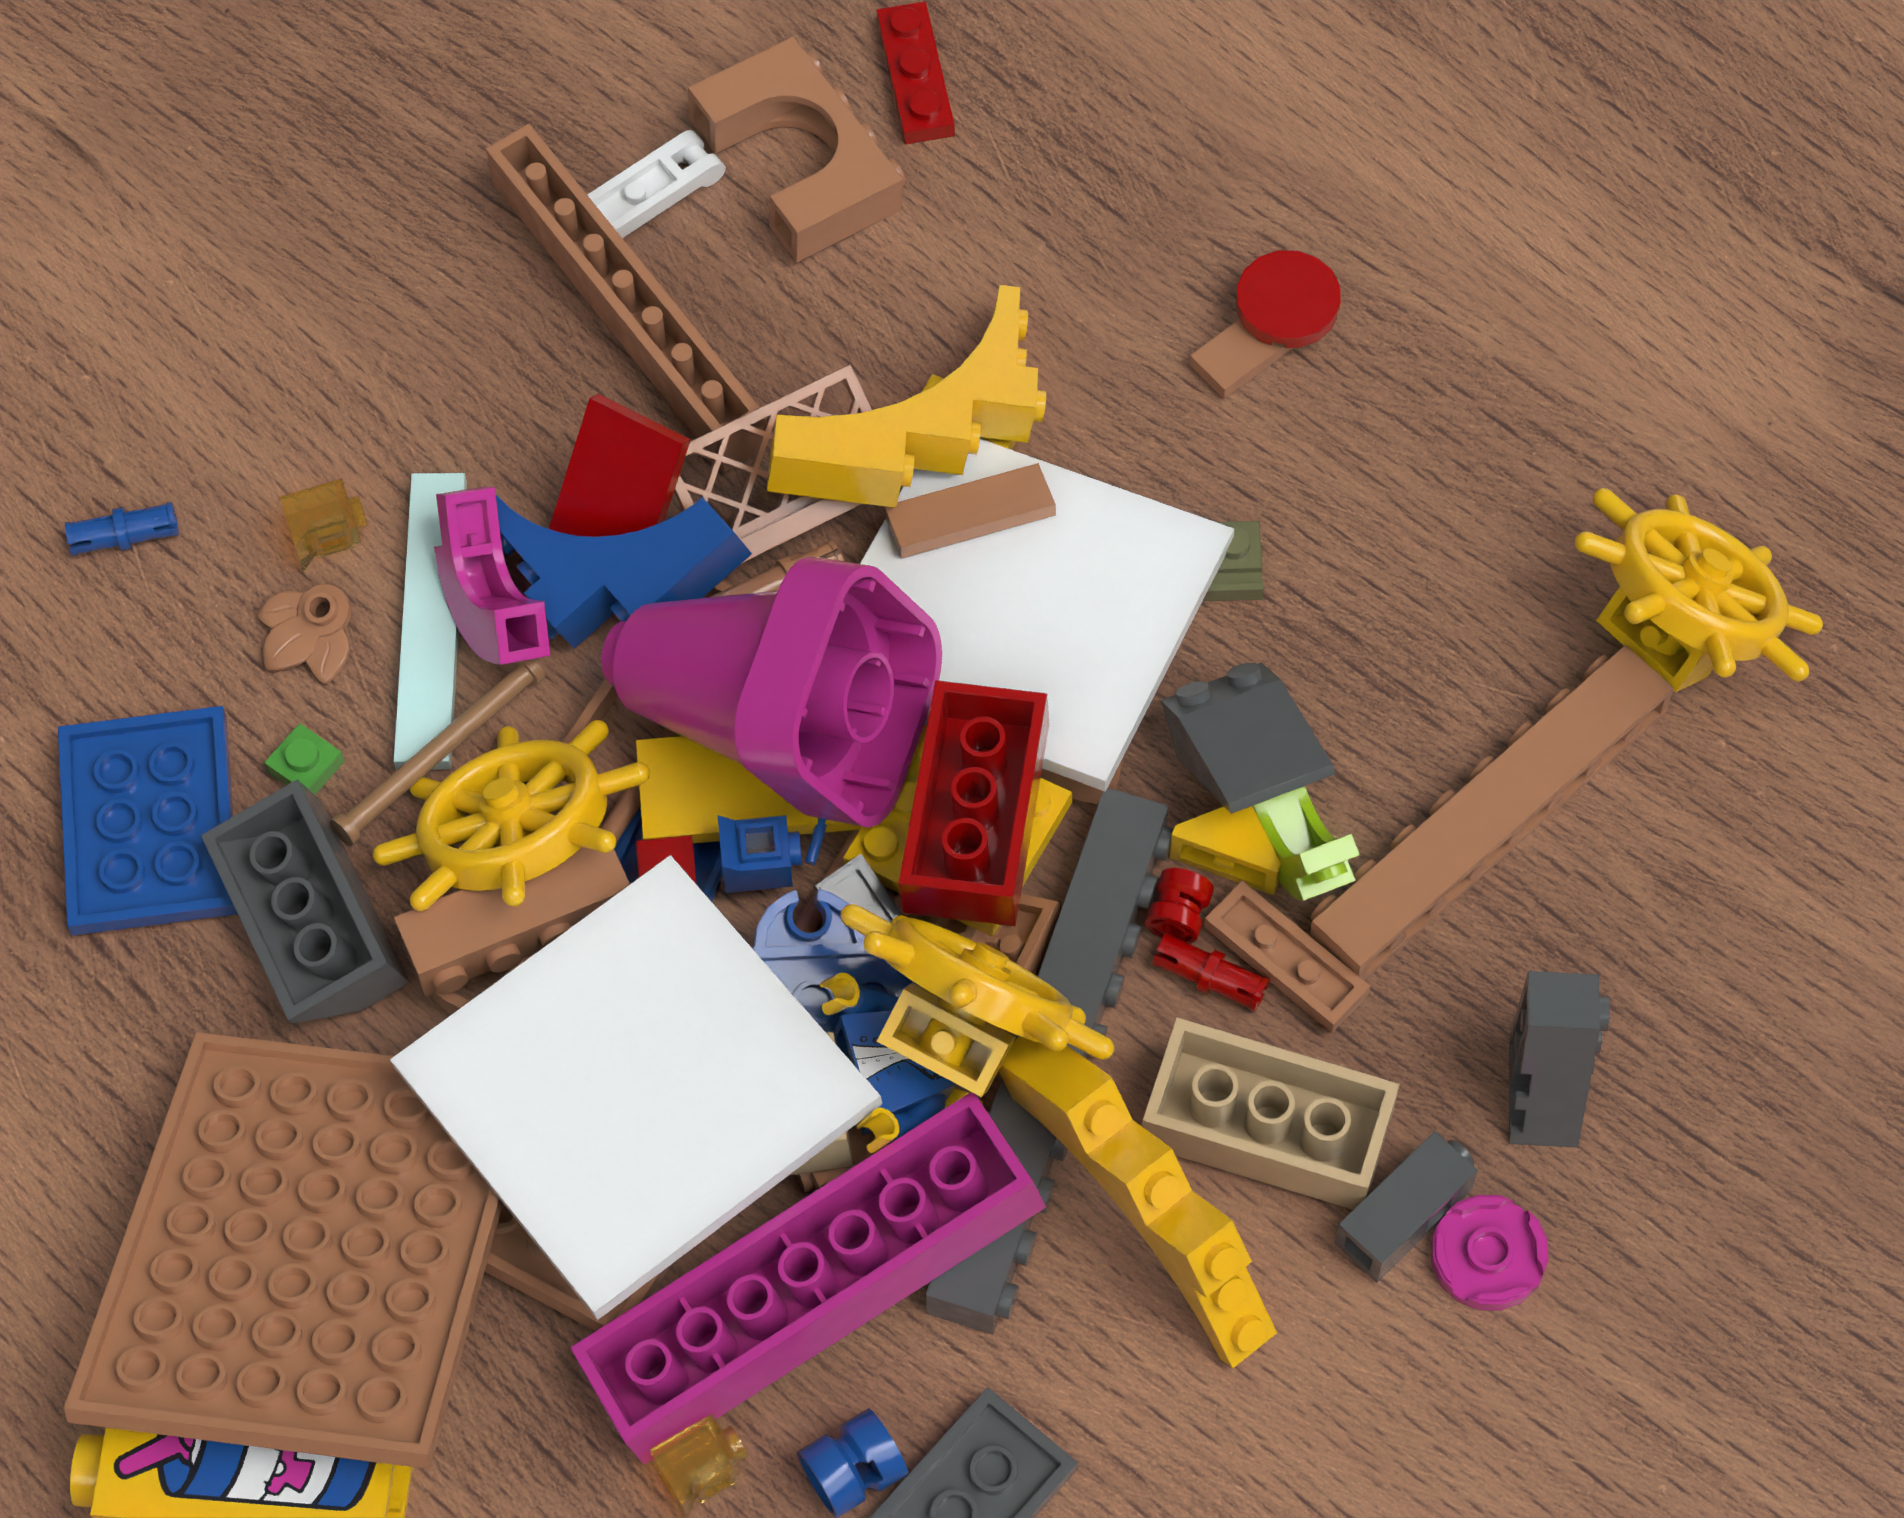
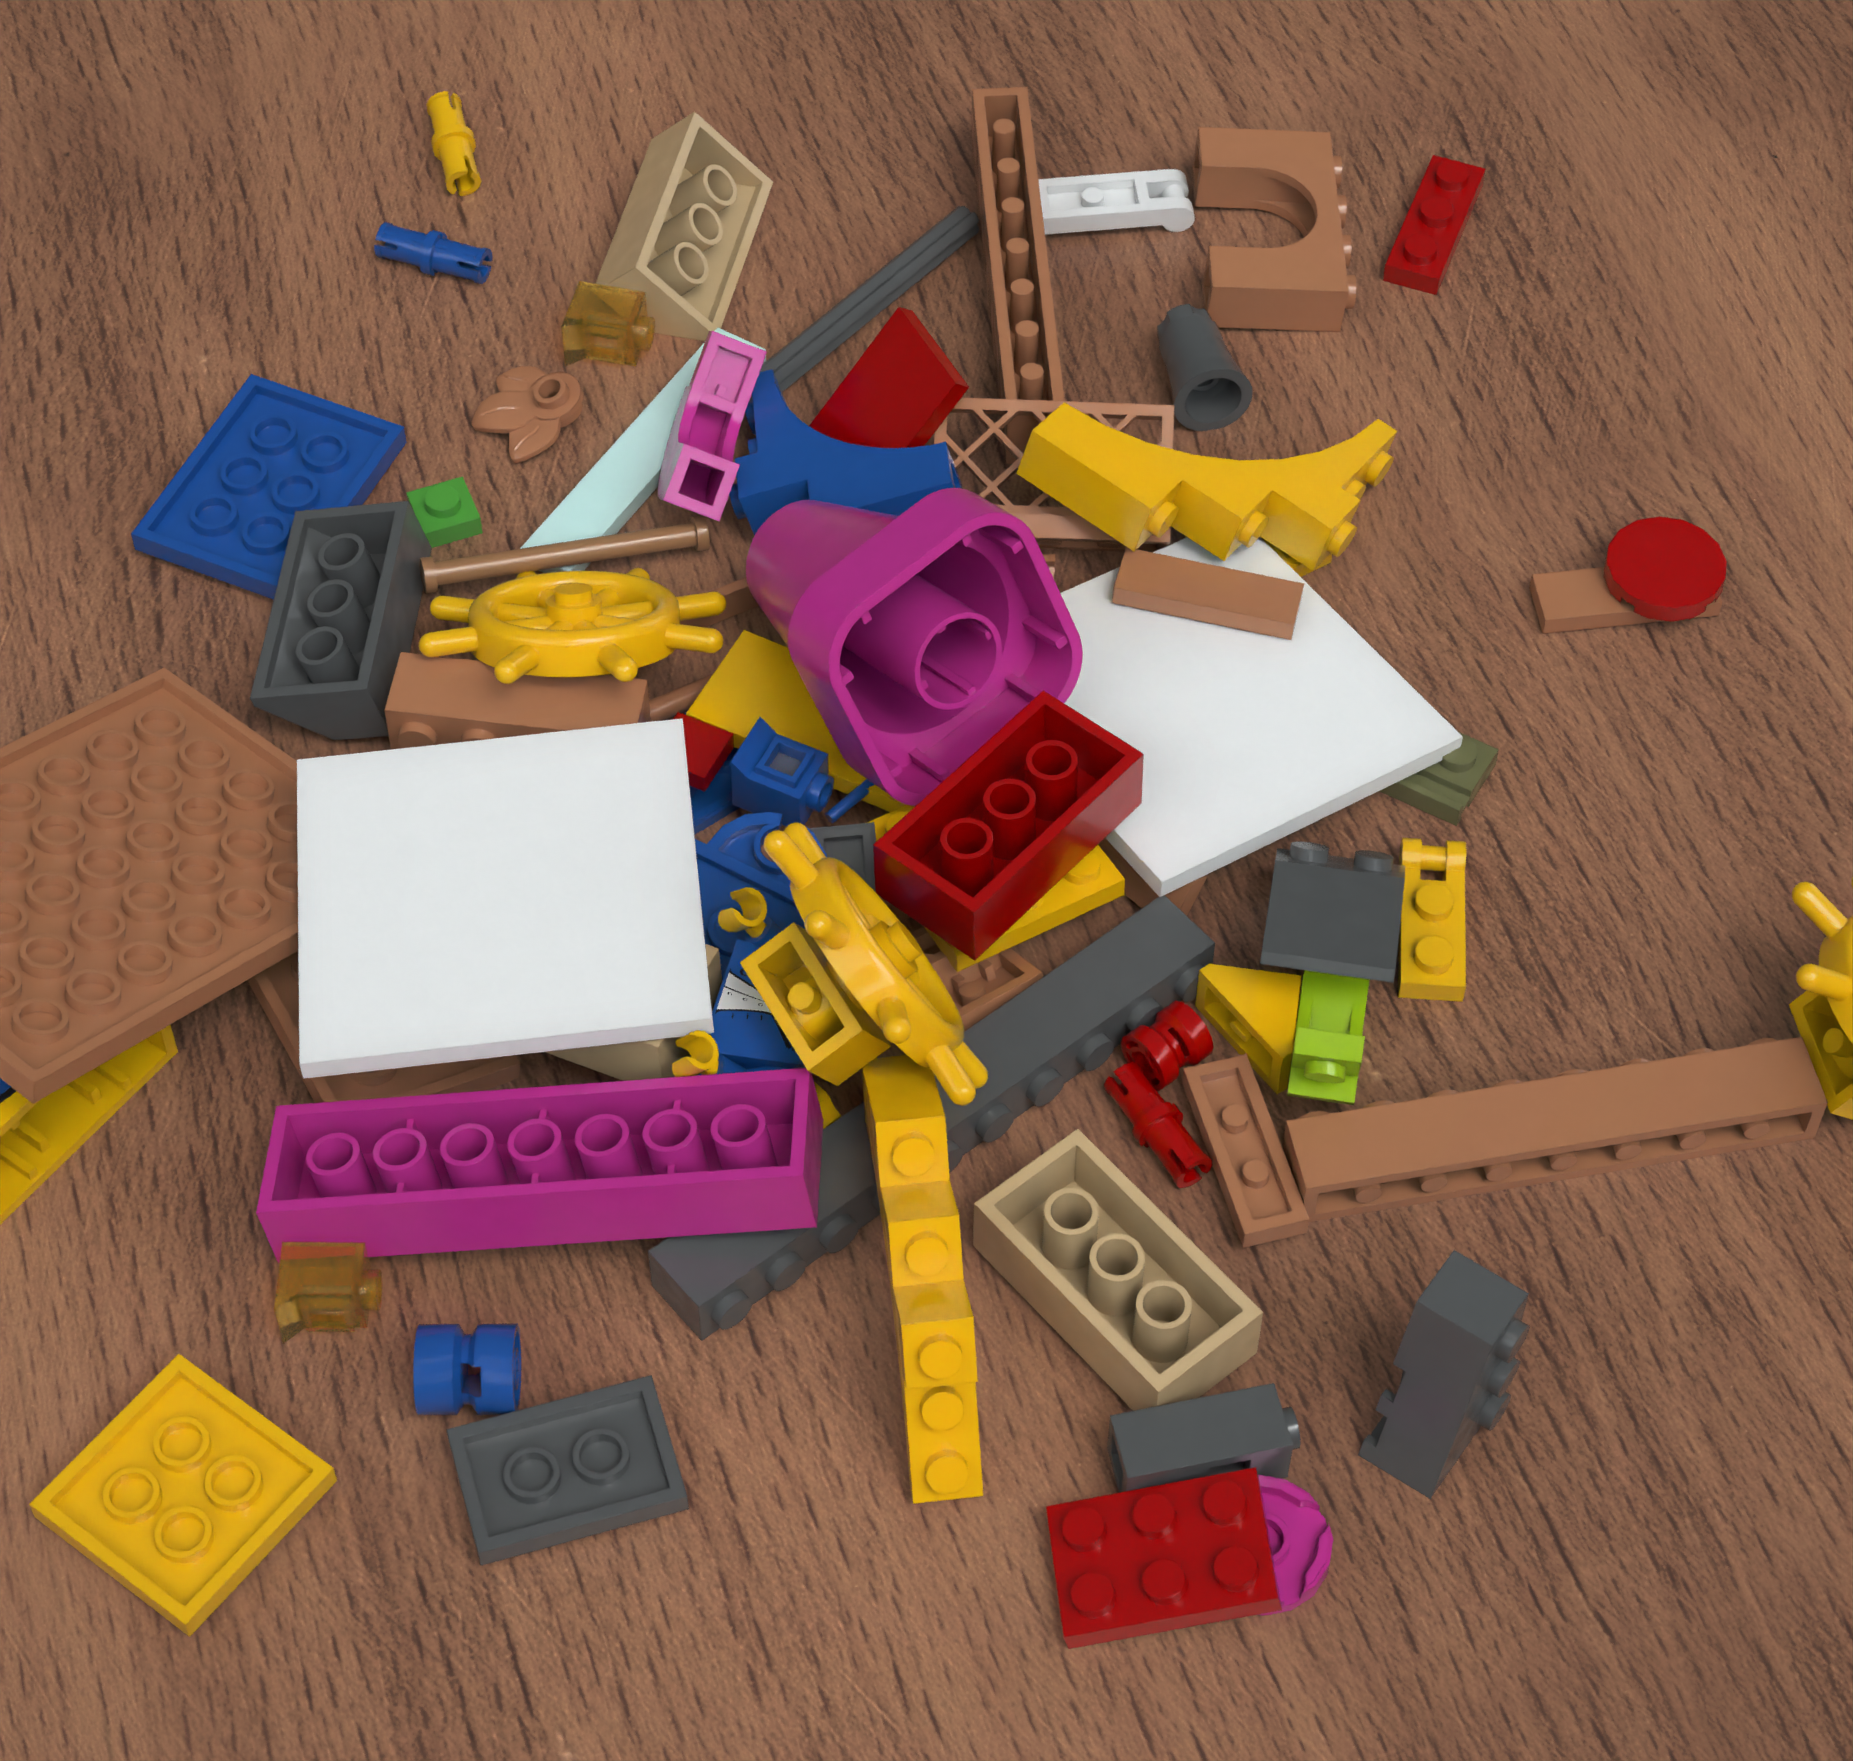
camera: 30 degrees right, 10 degrees down
(64, 416) = (453, 143): none -> yellow pin
(322, 397) = (687, 228): none -> tan slope
(515, 374) = (872, 297): none -> dark grey axle
(825, 307) = (1203, 376): none -> dark grey plant
(1303, 682) = (1432, 922): none -> yellow plate
(1435, 1305) = (1162, 1558): none -> red plate

